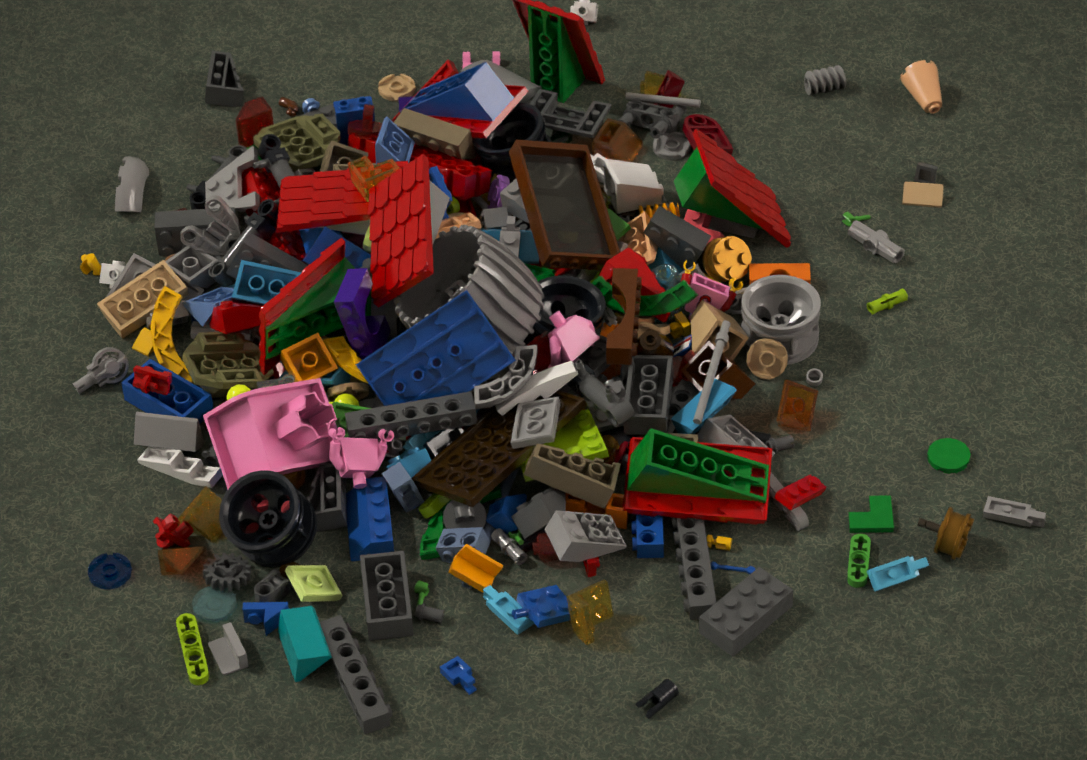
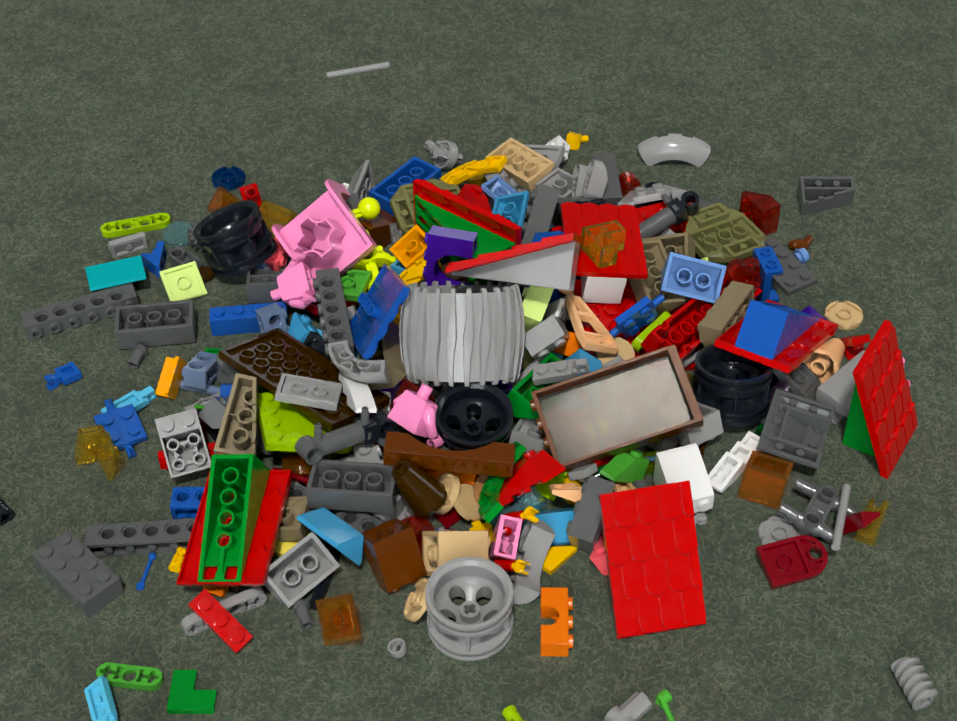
camera: 90 degrees right, 0 degrees up
(151, 380) = (399, 162): red hips -> none
(422, 589) = (166, 352): bright green hand -> none
(721, 341) = (403, 531): light grey bar -> none
(726, 258) = (571, 565): pearl gold wheel -> none

